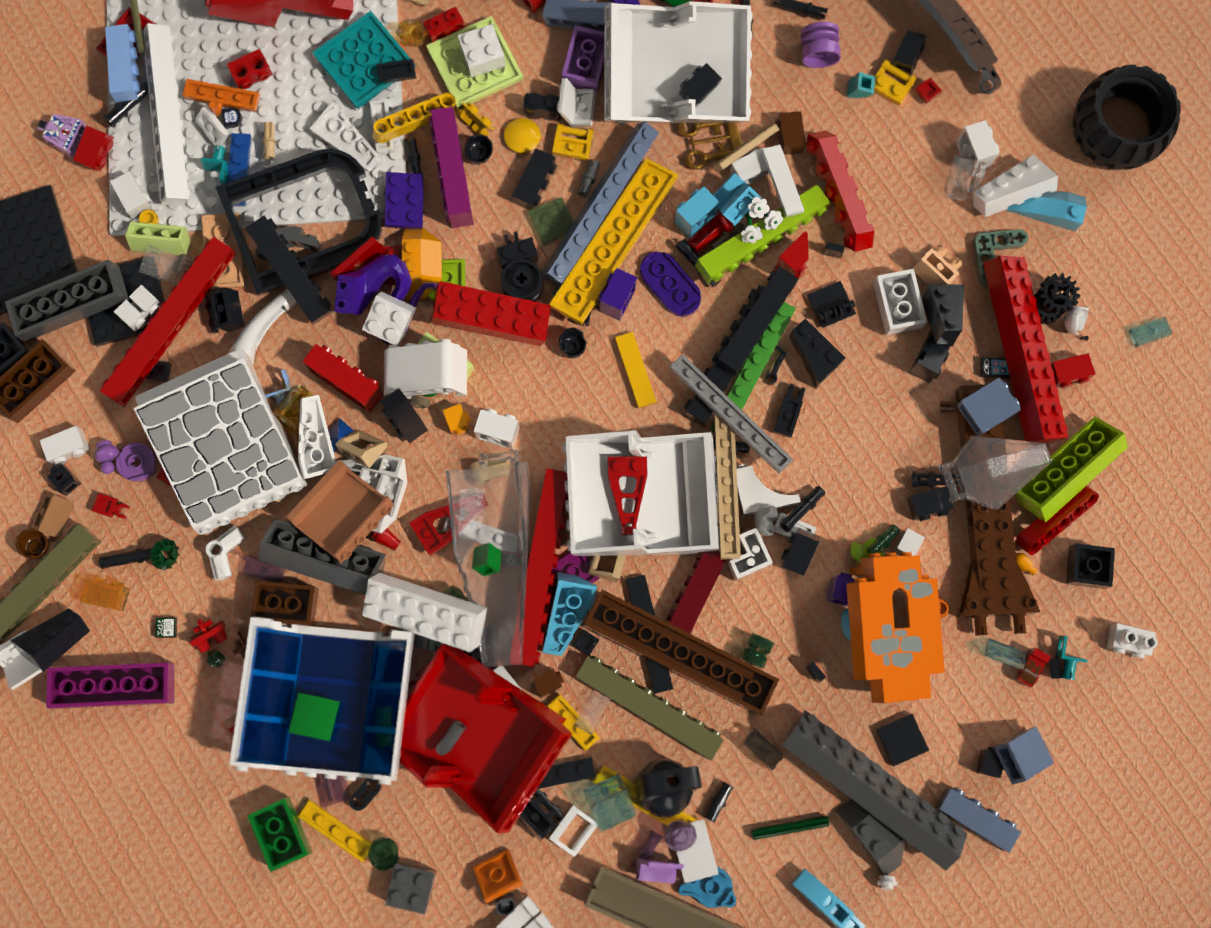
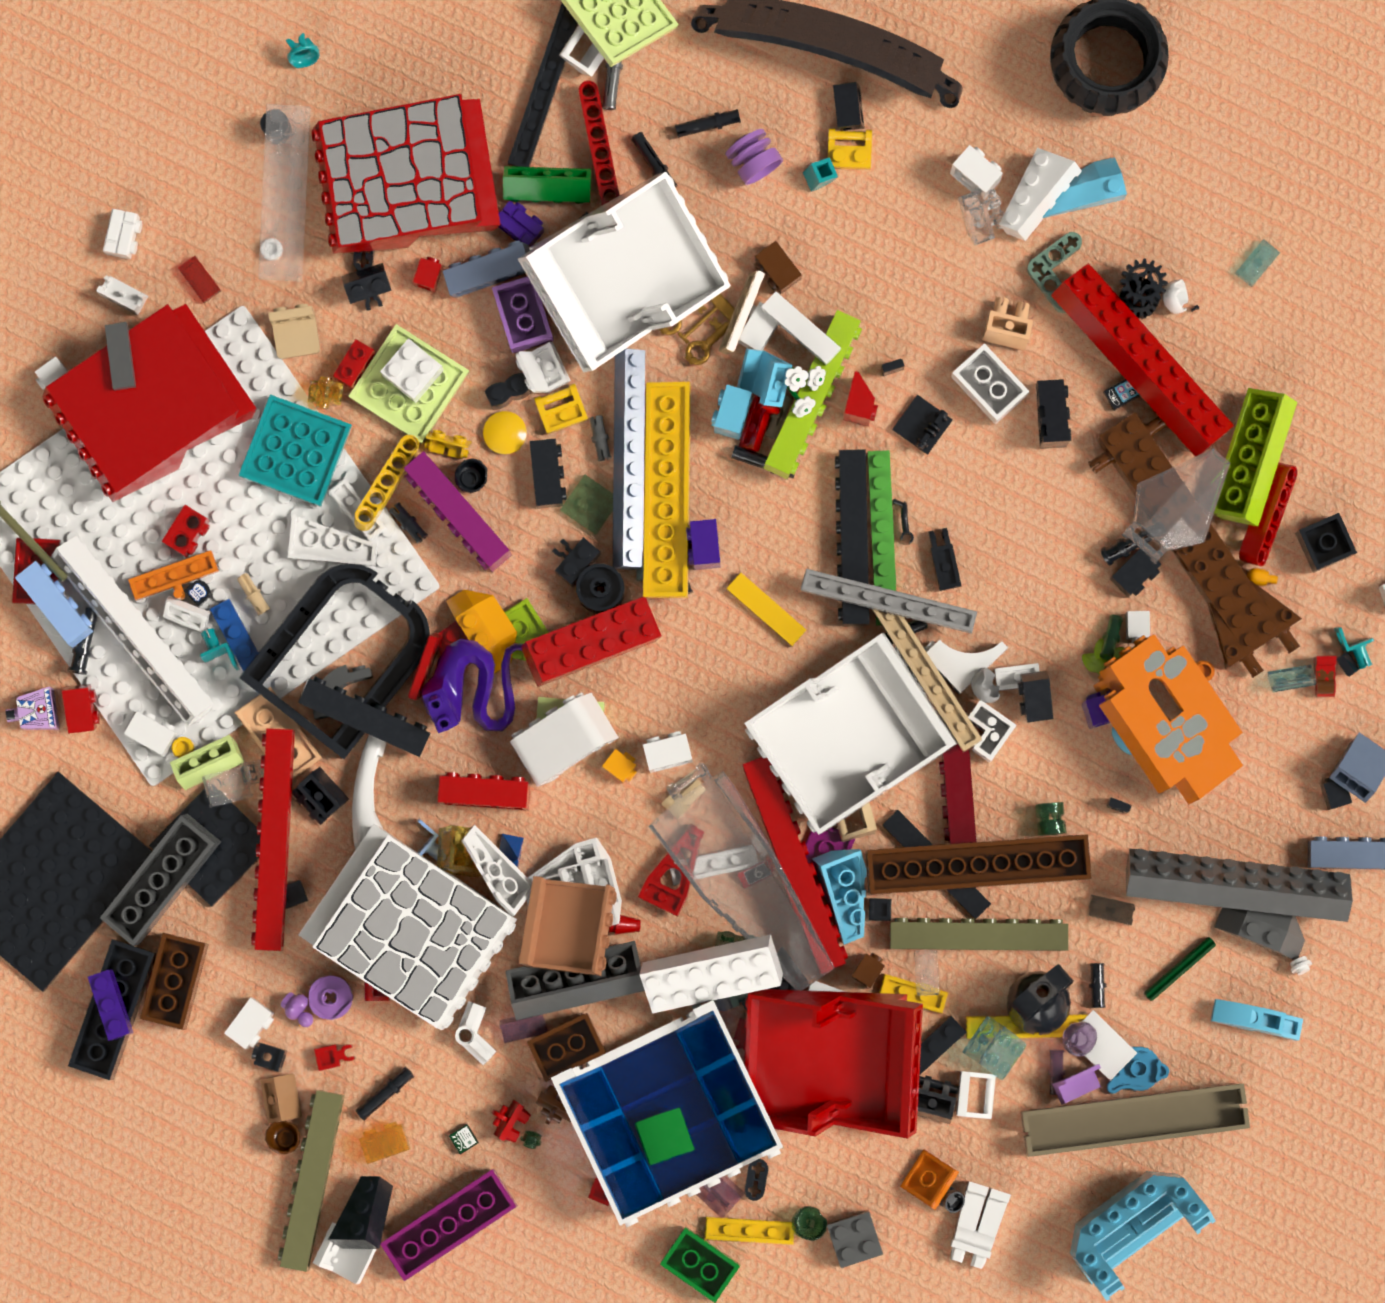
camera: 20 degrees left, 5 degrees up
(140, 310) = (236, 845): white piece -> none
(157, 557) = (414, 1075): dark green gear -> none
(365, 457) = (559, 857): tan tile -> none
(389, 318) = (495, 707): white brick -> none
(396, 71) = (338, 444): black tile -> none
(402, 416) = (569, 796): black brick -> none
(404, 200) = (428, 574): dark purple plate -> none
(420, 402) = (573, 770): dark tan tile -> none
(450, 738) = (807, 1077): dark grey bar -> none
(486, 559) = (739, 888): green panel -> none
(572, 343) = (688, 620): black hair -> none
(627, 467) = (820, 716): red plate -> none
(670, 283) = (748, 499): dark purple tile -> none
(700, 85) = (660, 279): black brick -> none
(757, 321) = (860, 490): black brick -> none
(808, 503) = (1016, 643): black pin -> none
(816, 352) = (936, 485): black wedge -> none
(841, 190) = (864, 301): red brick -> none
(902, 740) = (1239, 821): black tile -> none
(928, 90) = (891, 137): red plate -> none
(944, 311) = (1040, 370): black wedge -> none
(989, 406) = (1138, 444): sand blue brick -> none
(1073, 370) = (1200, 352): red brick -> none

